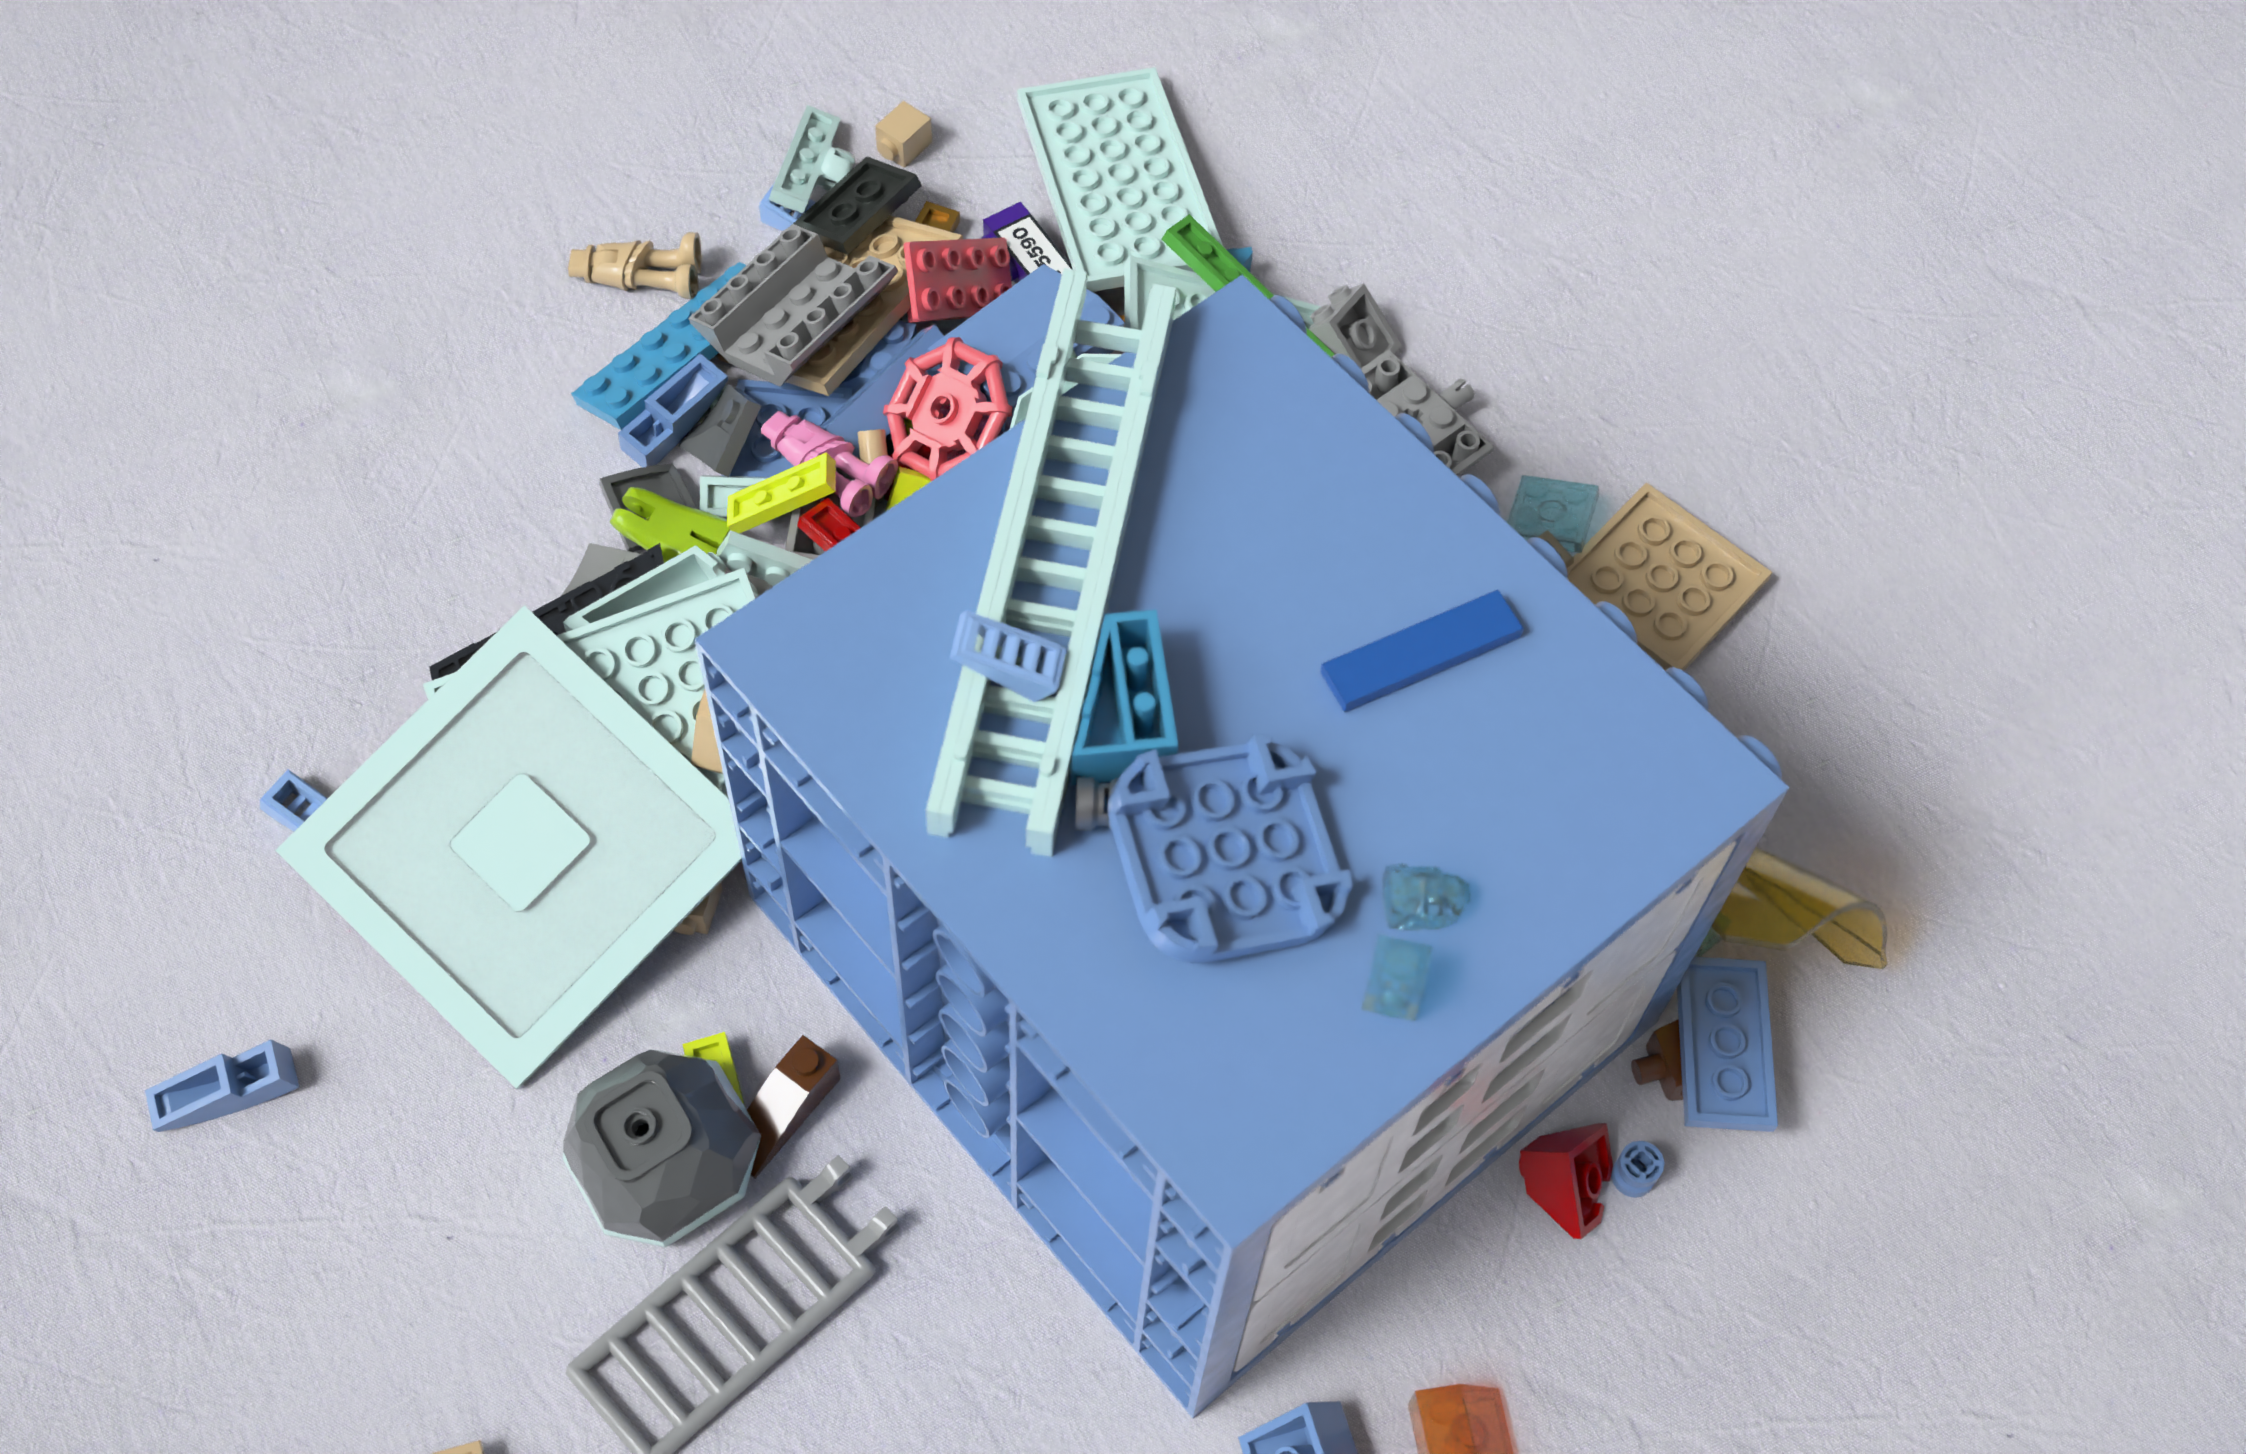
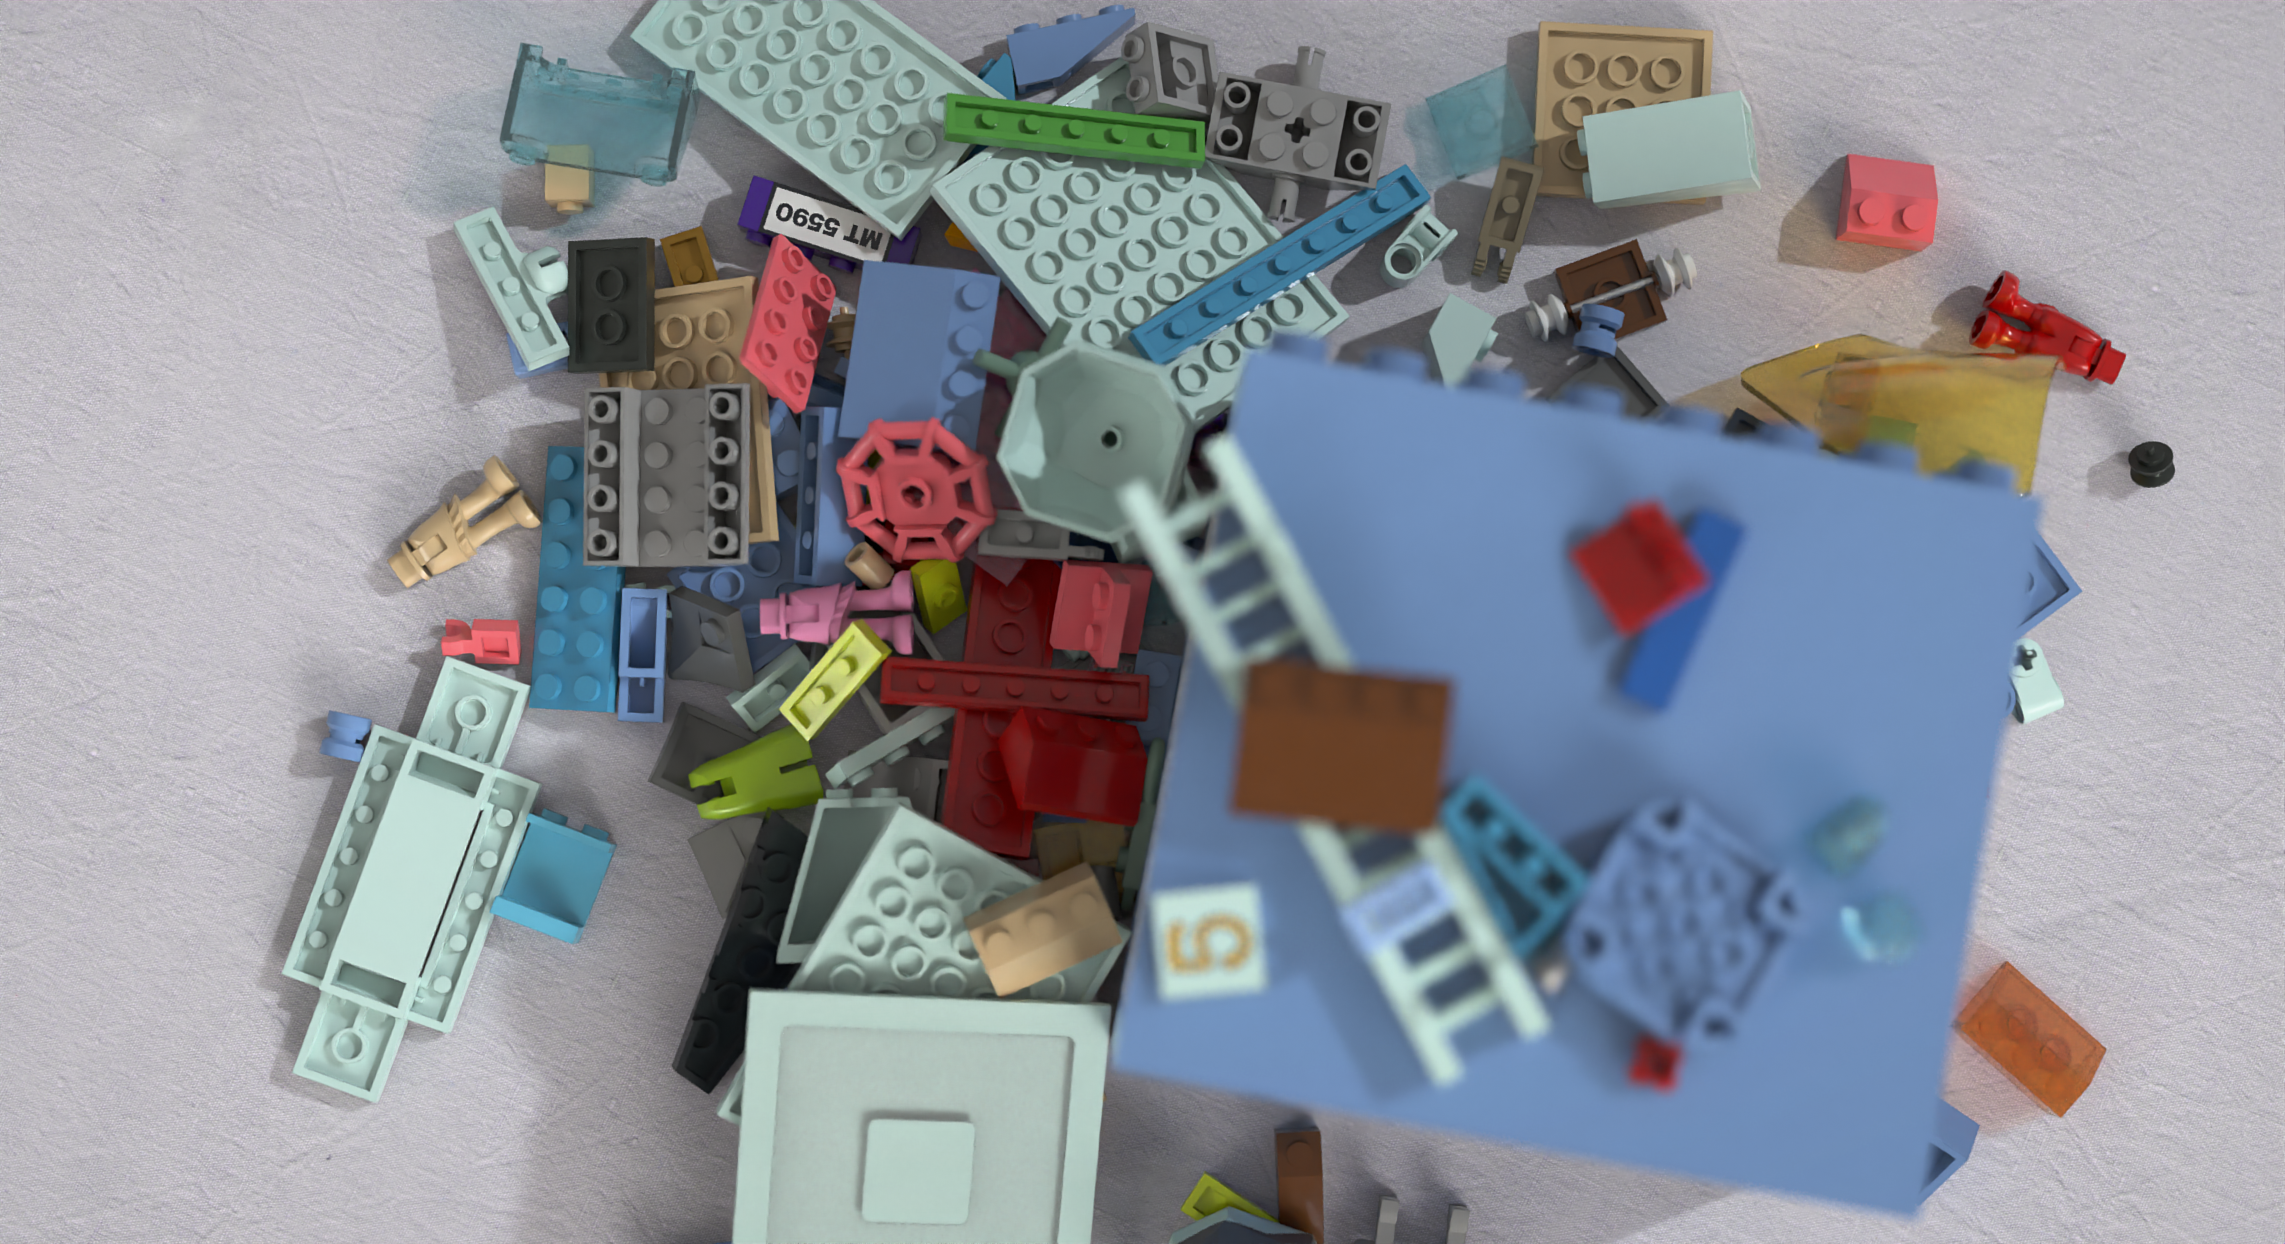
camera: 45 degrees left, 25 degrees up
(381, 413) = (395, 871): none -> light aqua piece
(439, 323) = (345, 736): none -> medium blue wheel
(483, 503) = (555, 877): none -> medium azure panel
(587, 336) = (488, 640): none -> coral plate
(849, 604) = (1208, 941): none -> light aqua tile
(931, 87) = (598, 119): none -> clear light blue windscreen
(1073, 510) = (1341, 746): none -> reddish brown slope
(1115, 931) = (1665, 1074): none -> red plate
(1296, 275) = (1055, 53): none -> medium blue slope
(1414, 588) = (1639, 566): none -> red hinge
(1681, 1186) = (2034, 685): none -> light aqua piece
(1686, 610) = (1670, 151): none -> light aqua slope
(1822, 774) = (1887, 203): none -> coral slope
(1906, 974) = (2049, 332): none -> red piece
(1906, 1098) = (2151, 464): none -> pearl dark grey wheel

